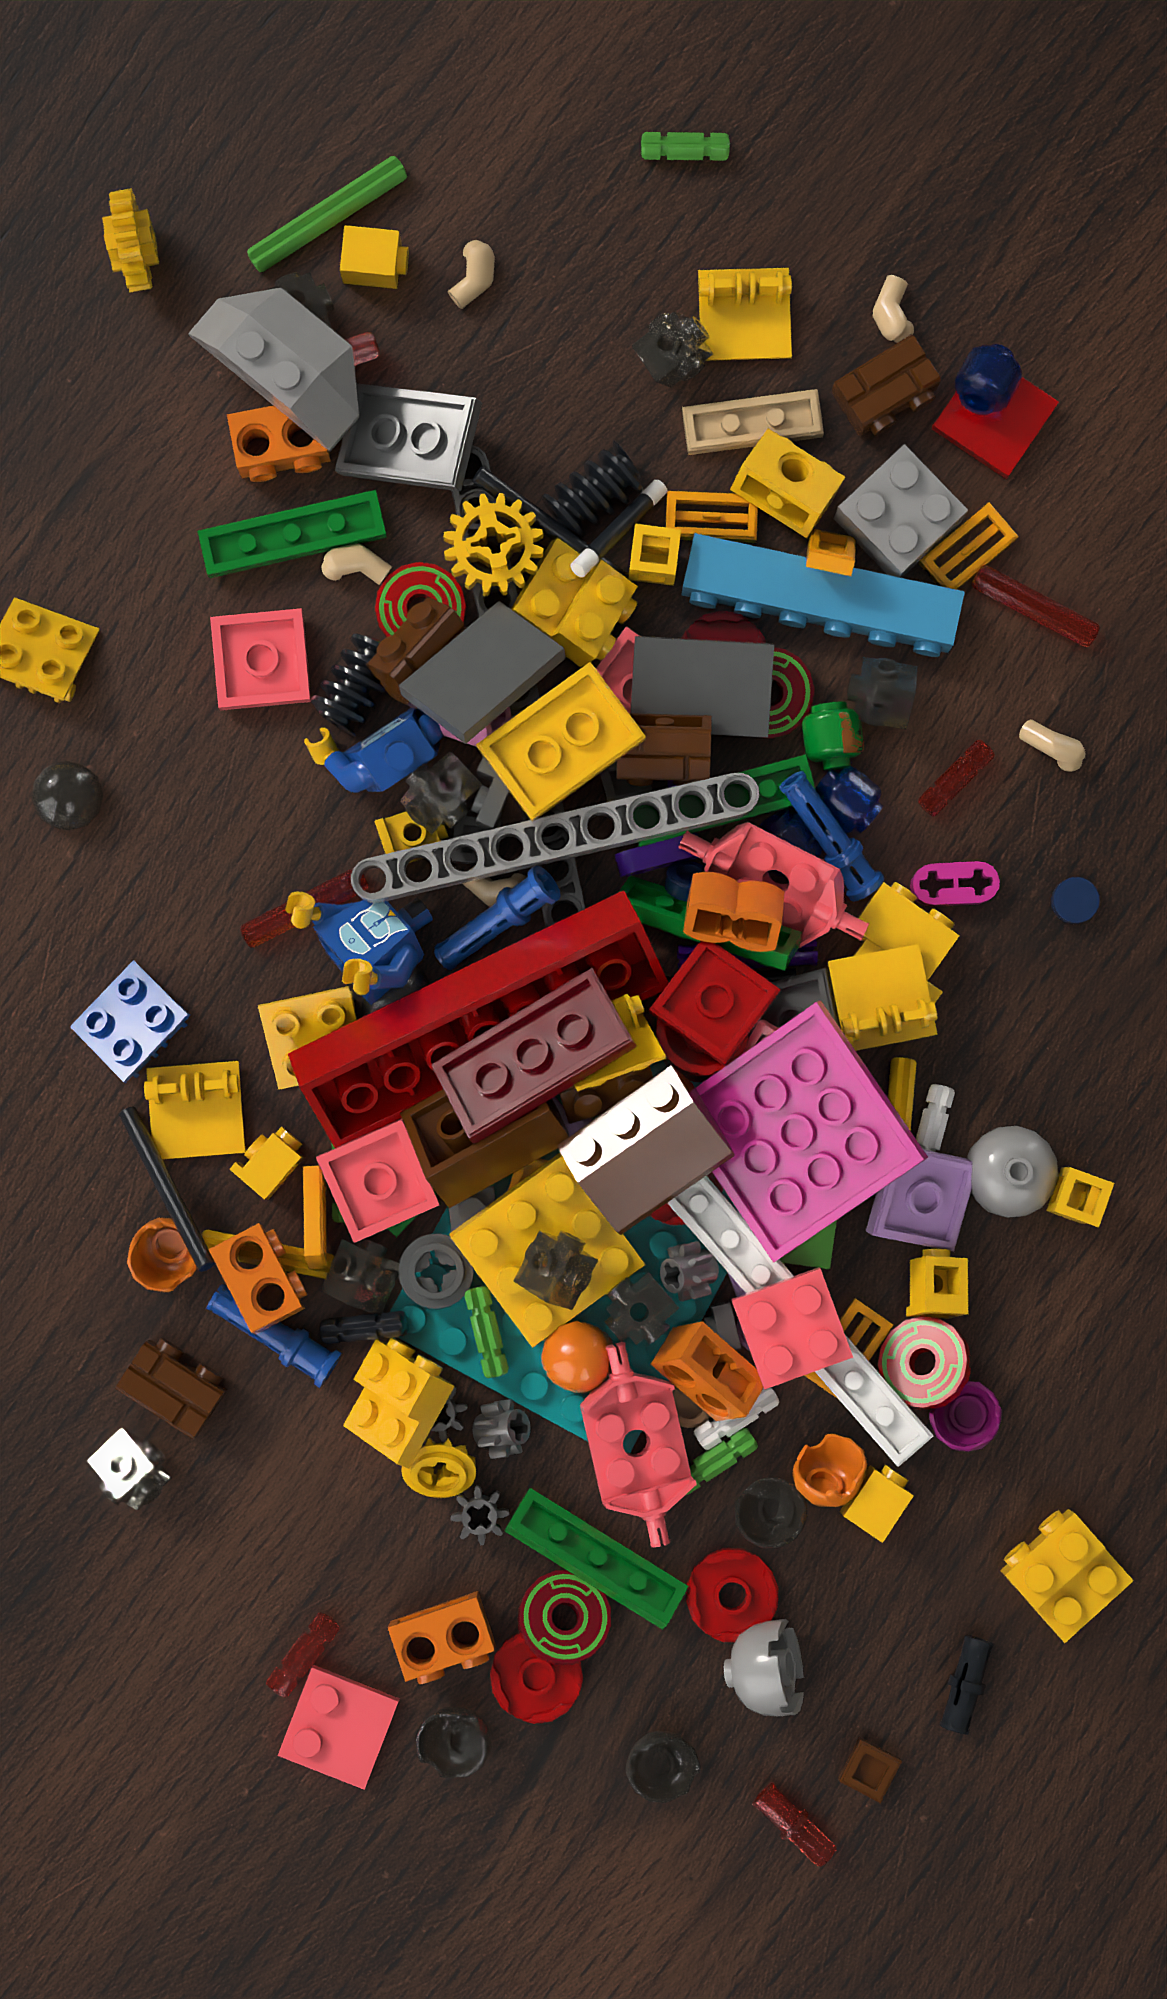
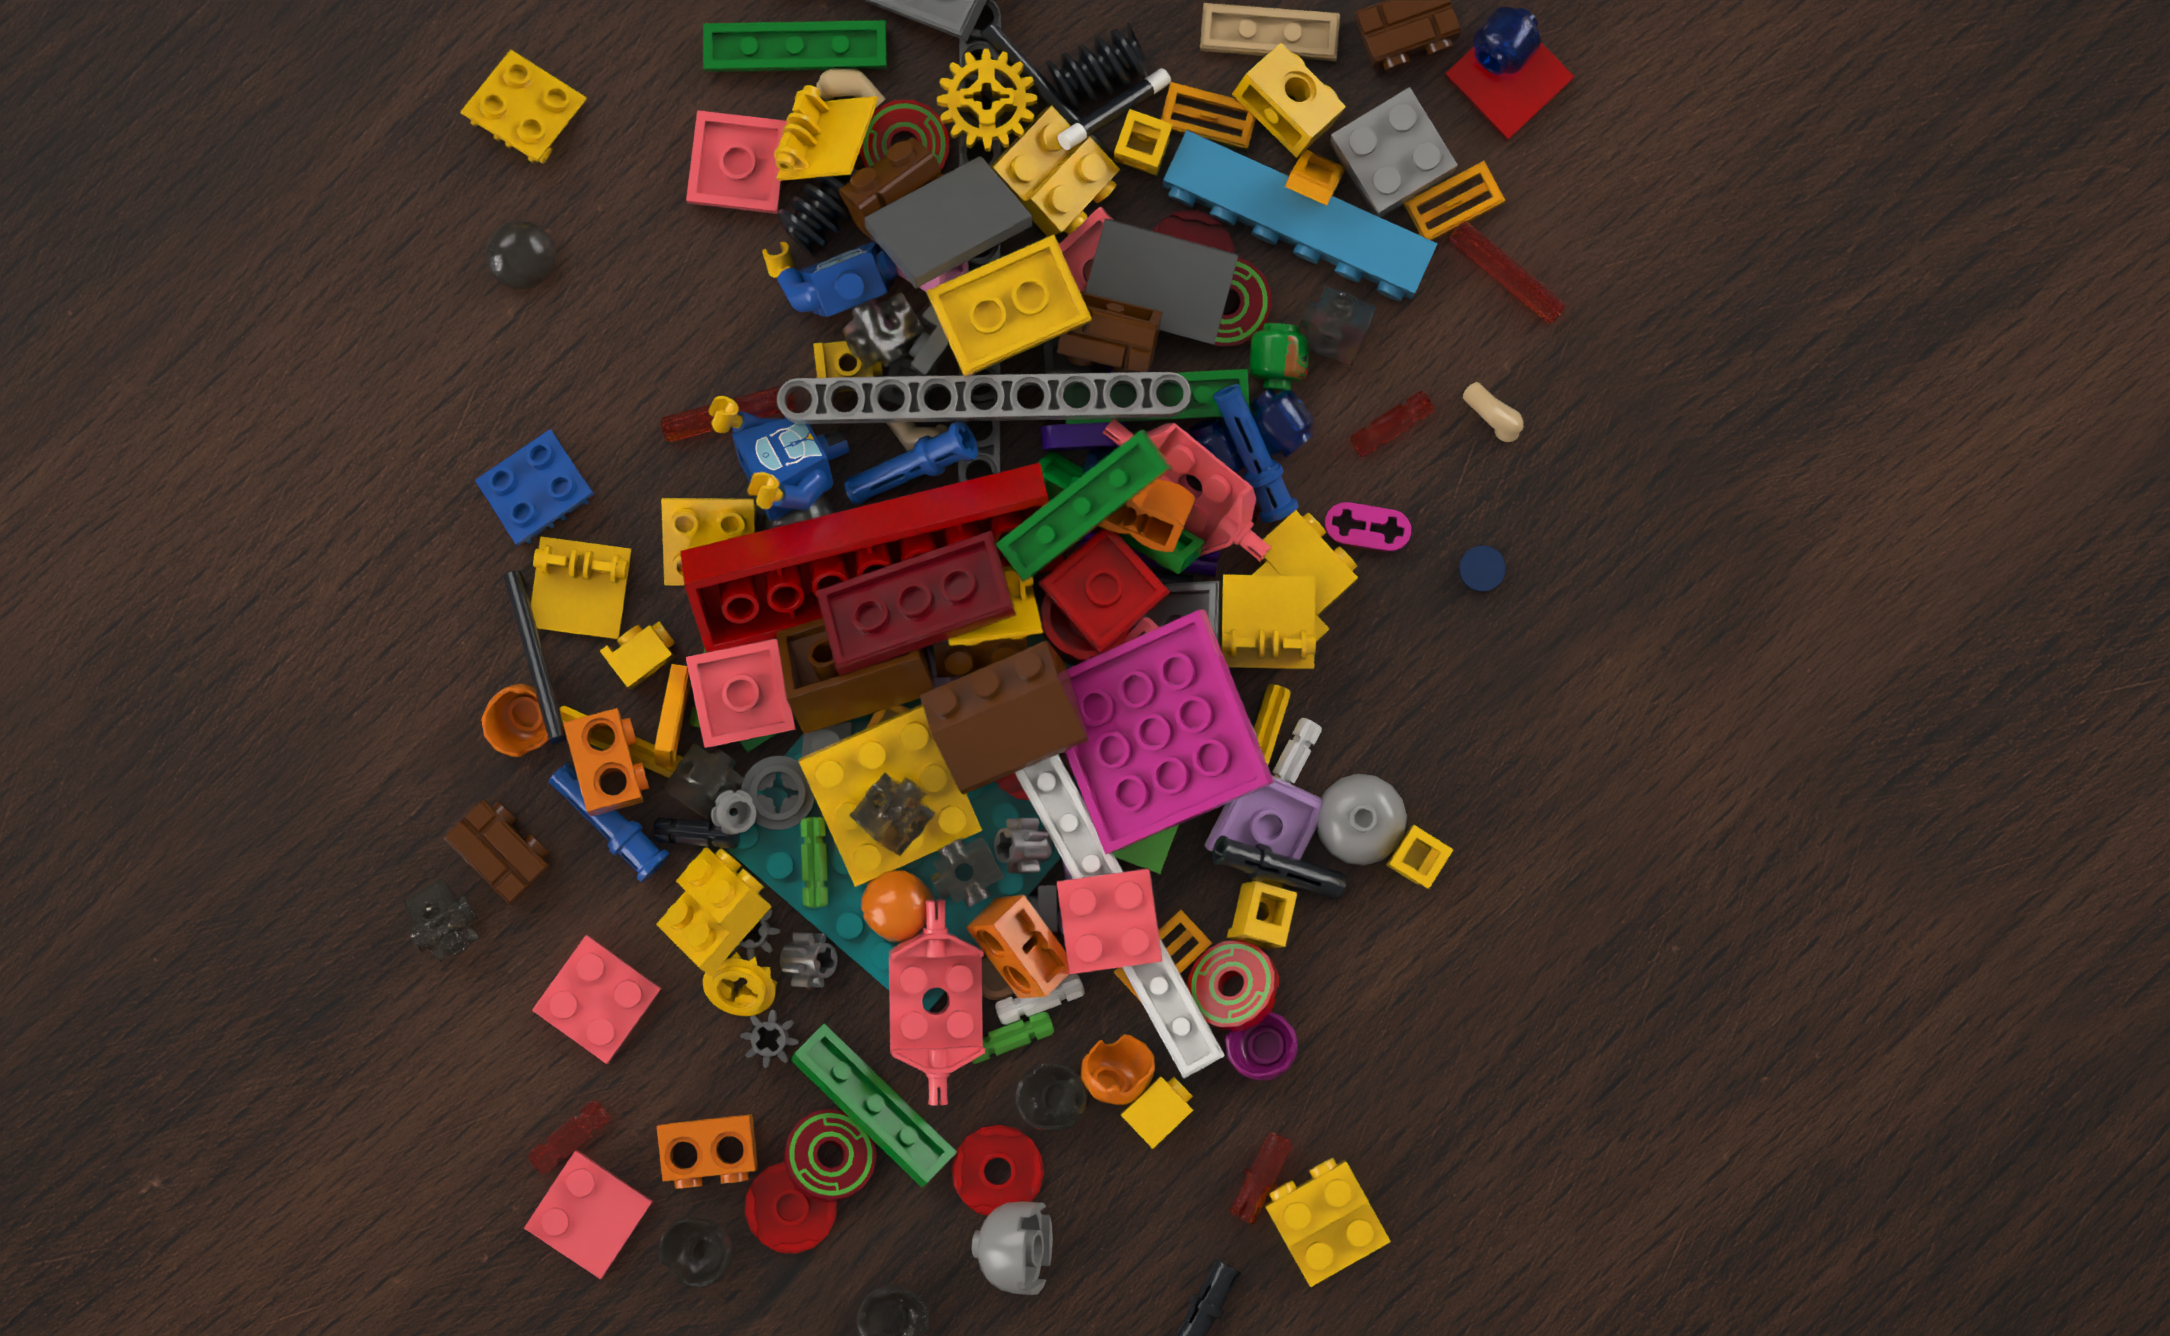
camera: 20 degrees right, 0 degrees up
(300, 1512) = (597, 999): none -> coral plate
(339, 614) = (822, 135): none -> yellow hinge
(406, 1305) = (744, 815): none -> light grey plate
(679, 923) = (1083, 505): none -> green plate
(927, 1237) = (1262, 863): none -> black pin
(993, 1545) = (1261, 1177): none -> clear red axle

